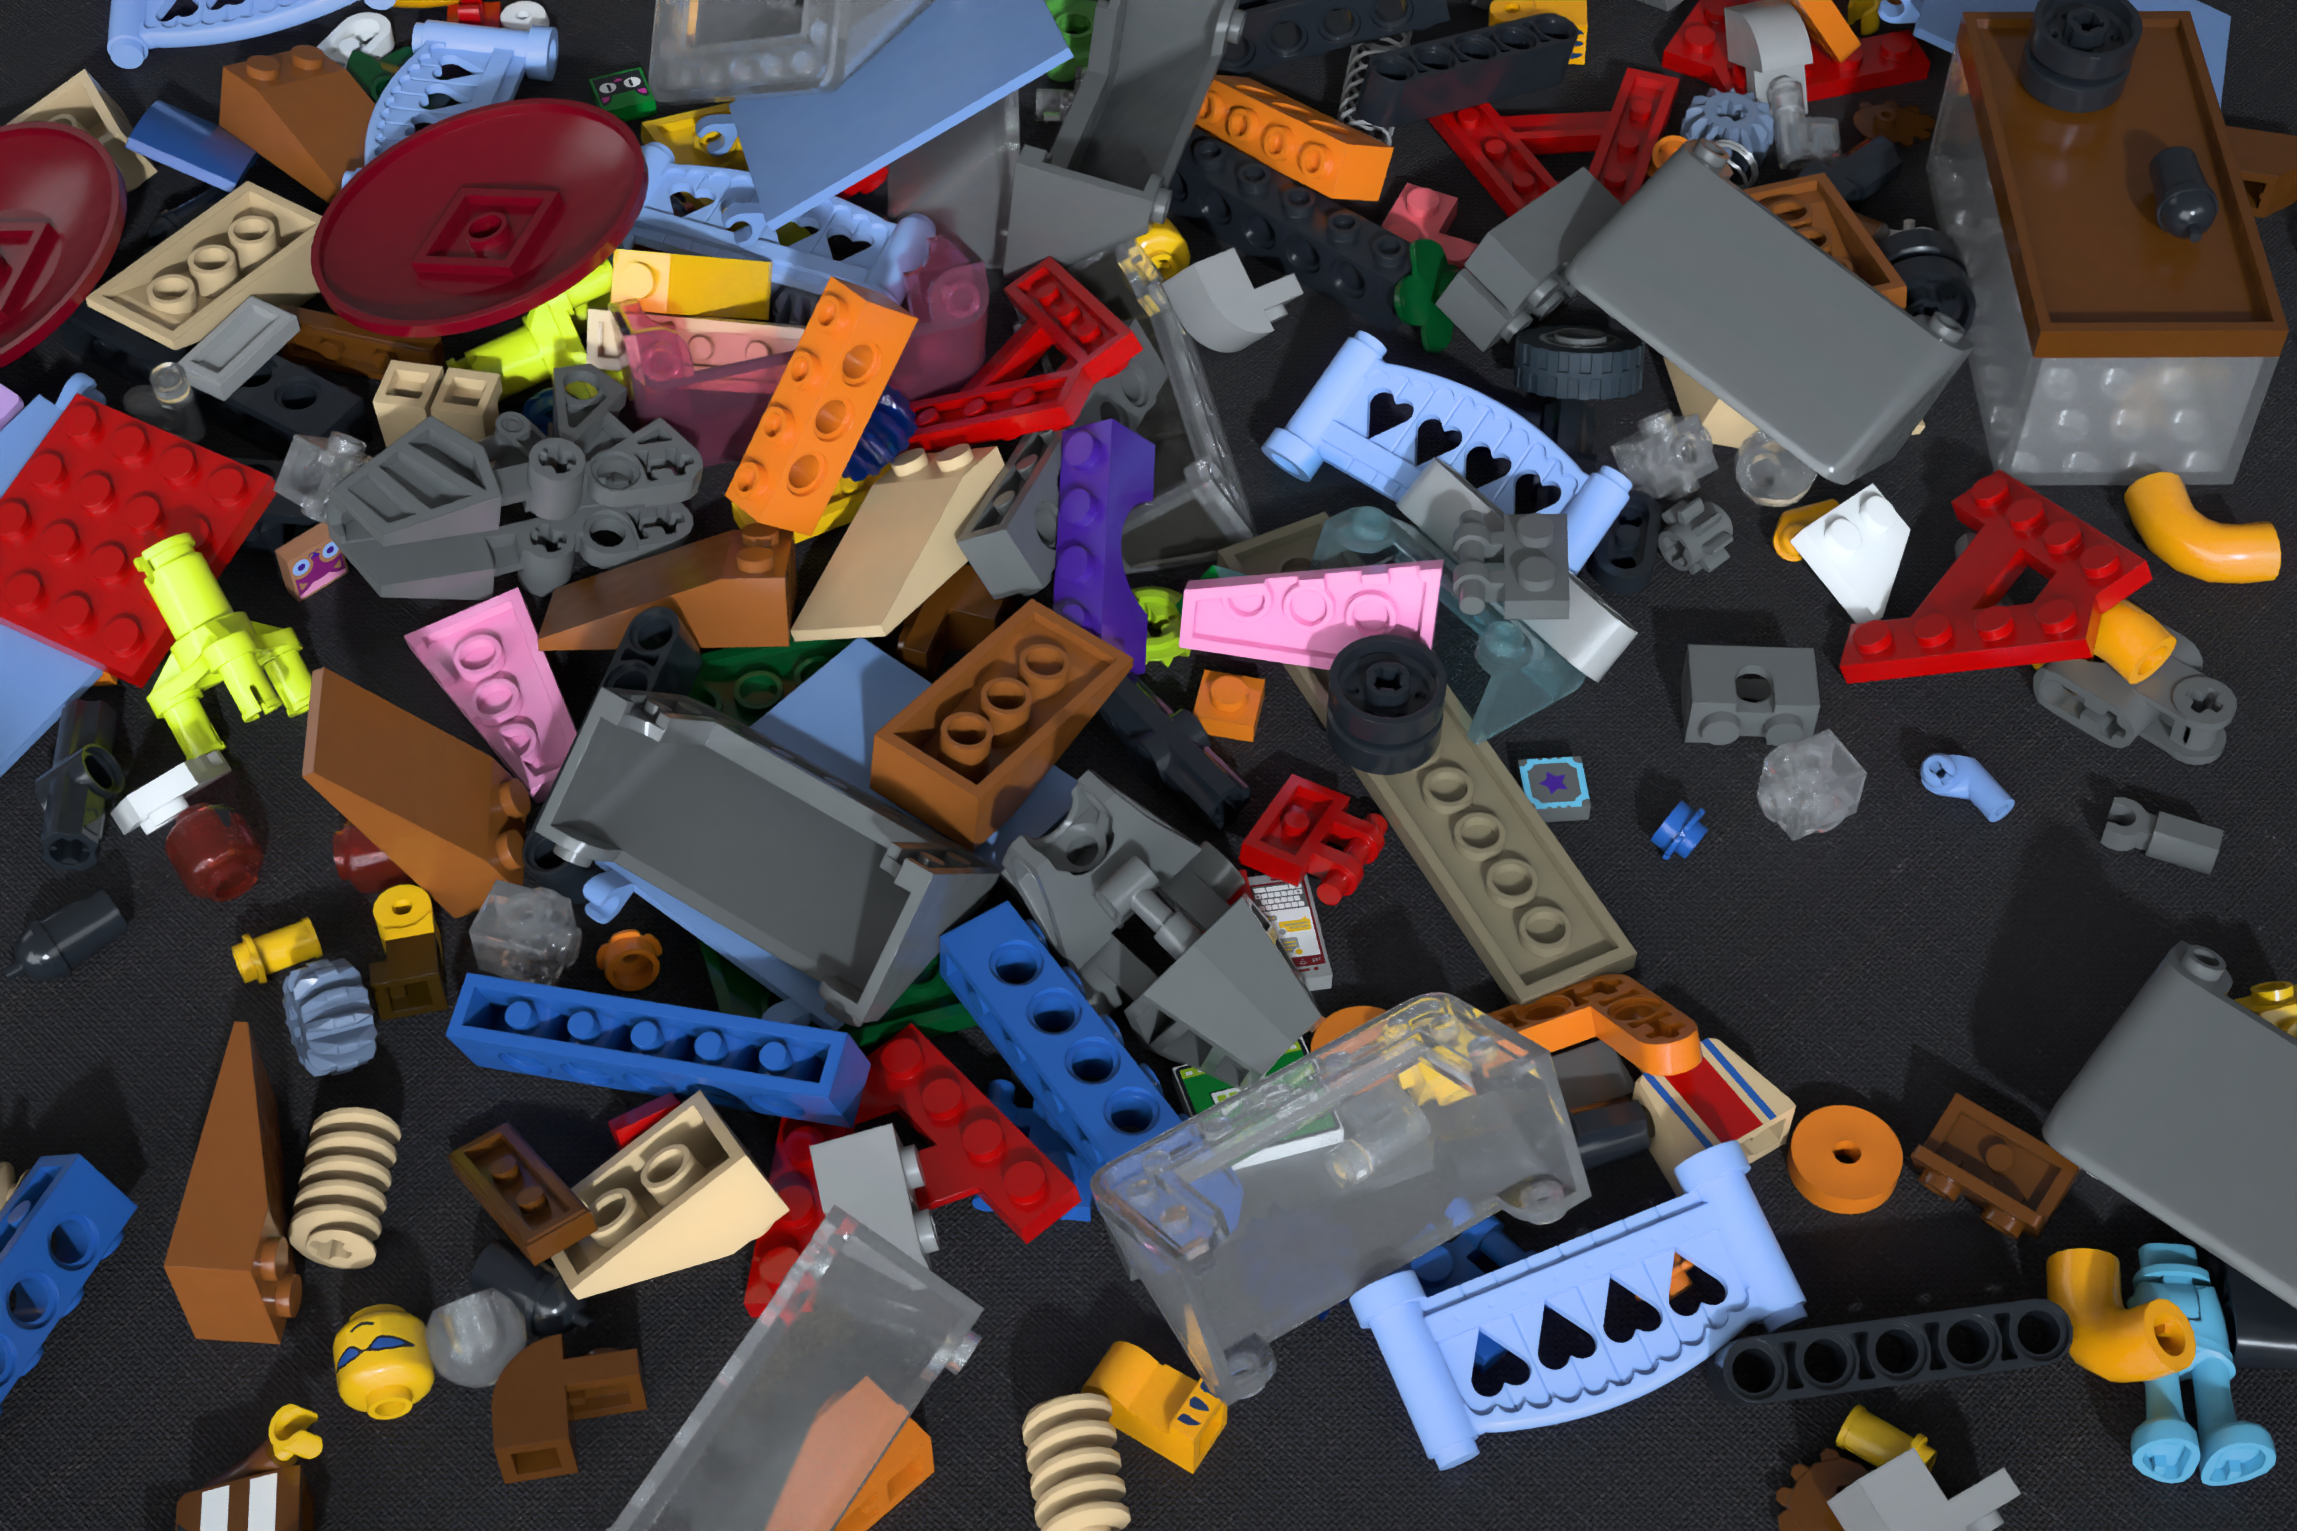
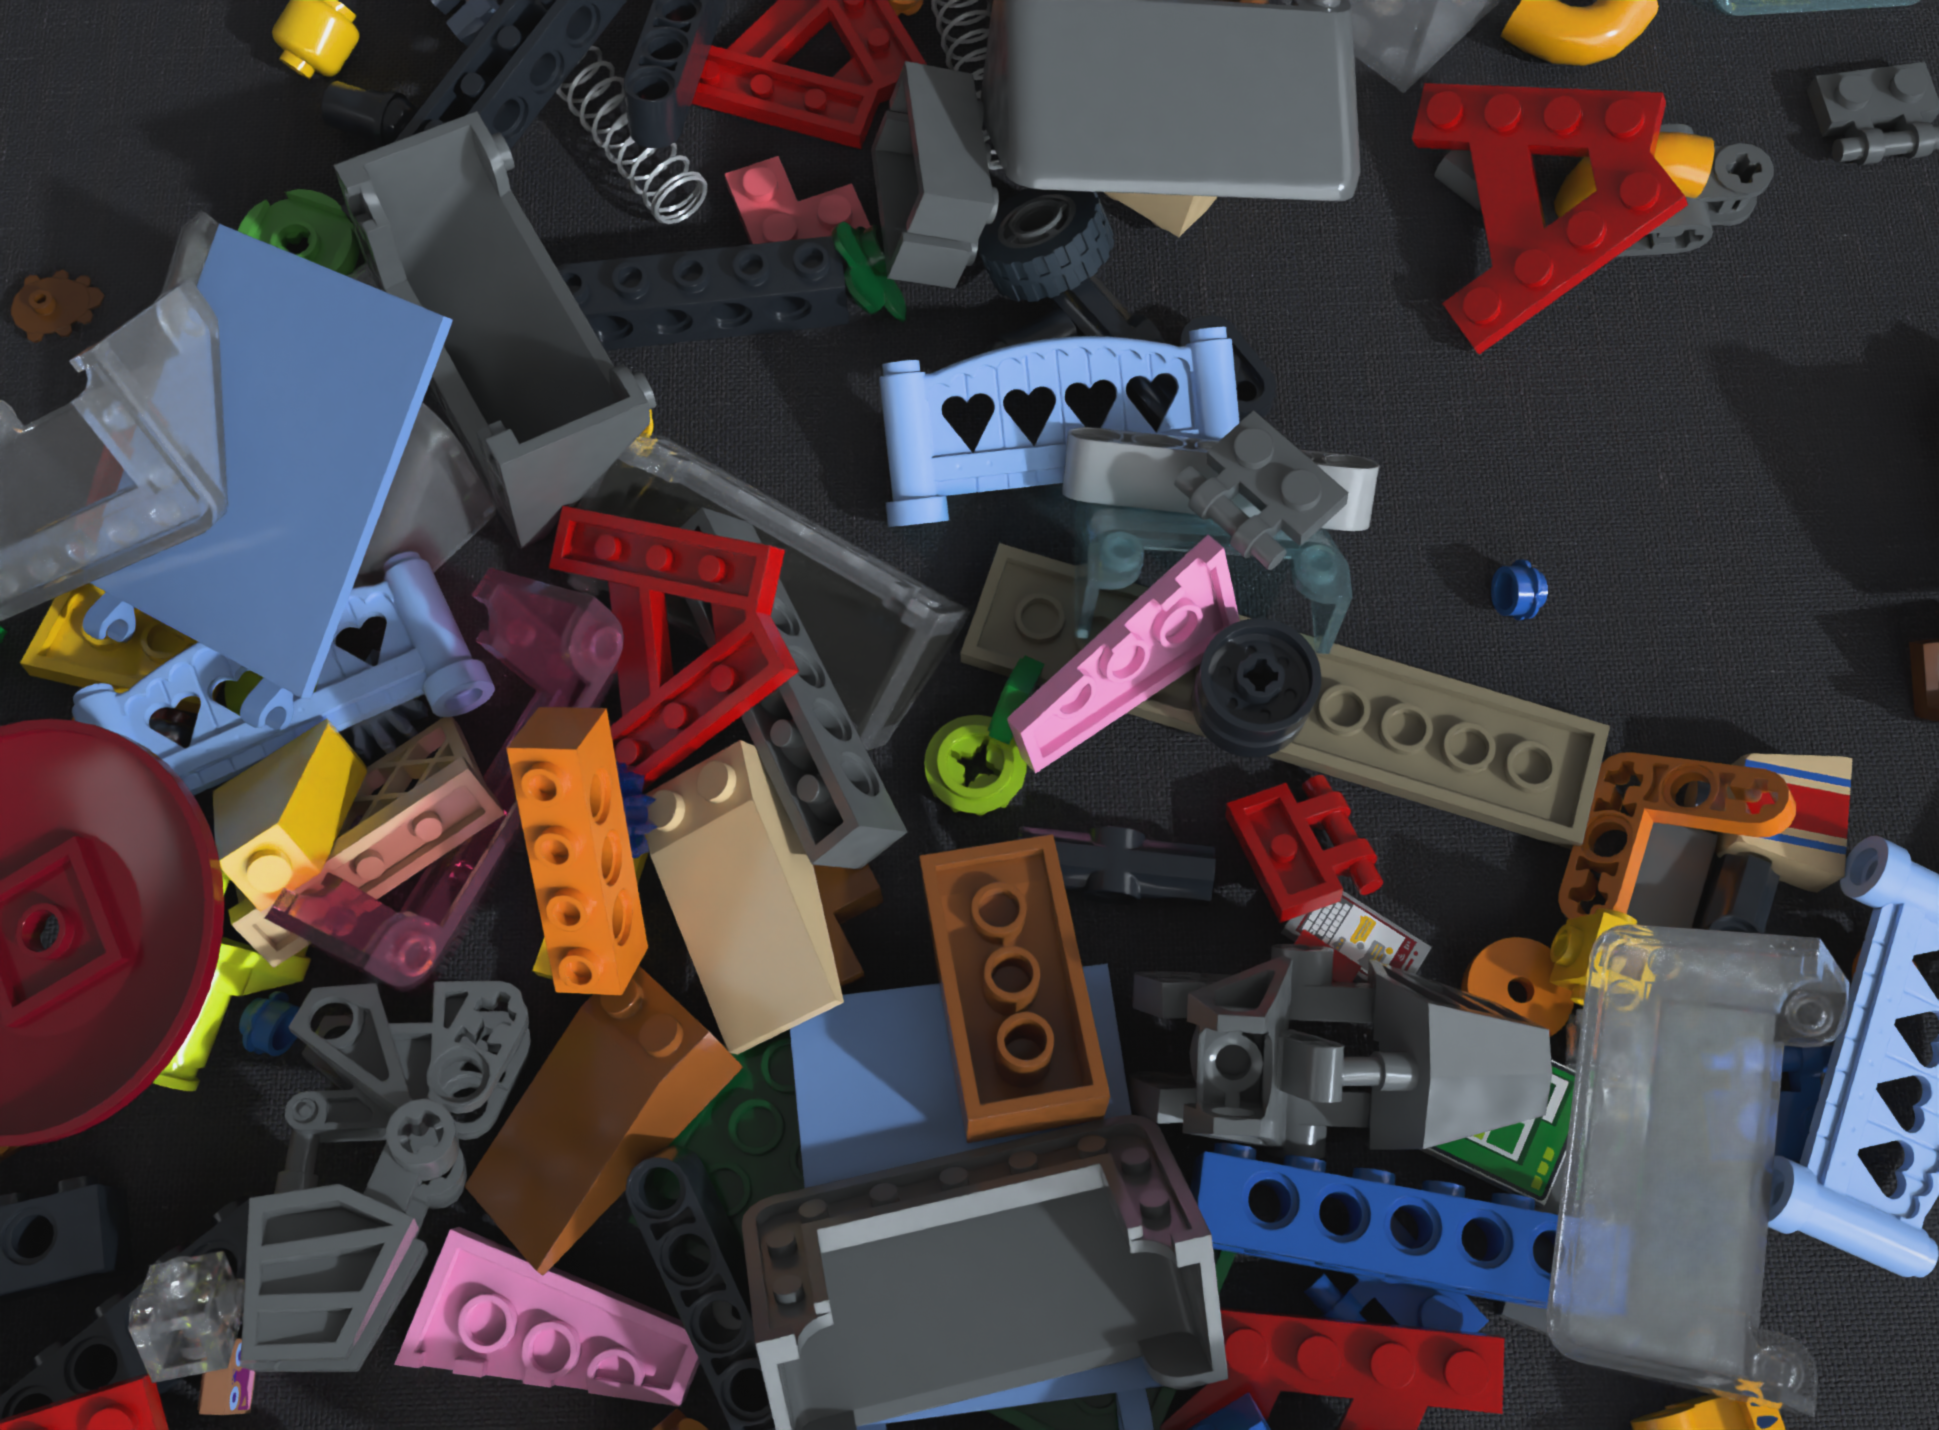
camera: 45 degrees left, 20 degrees up
(459, 399) = (191, 1138): tan hips -> none
(1101, 479) = (863, 704): dark purple arch -> none
(1223, 307) = (727, 414): light grey brick -> none
(1229, 705) = (1103, 780): orange plate -> none
(1295, 139) = (629, 210): orange brick -> none
(1555, 787) = (1397, 631): dark grey tile -> none
(1666, 455) = (1186, 272): clear brick -> none
(1695, 536) = (1275, 322): dark grey gear -> none
(1722, 707) = (1463, 403): dark grey brick -> none
(1769, 465) = (1266, 218): clear piece -> none
(1794, 521) = (1318, 248): light orange arm -> none
(1810, 785) = (1573, 473): clear brick -> none
(1839, 1185) = (1904, 741): orange piece -> none
(1857, 552) = (1389, 242): white wing -> none
(1966, 779) = (1641, 366): medium blue arm -> none
(2162, 836) = (1802, 299): dark grey bar -> none

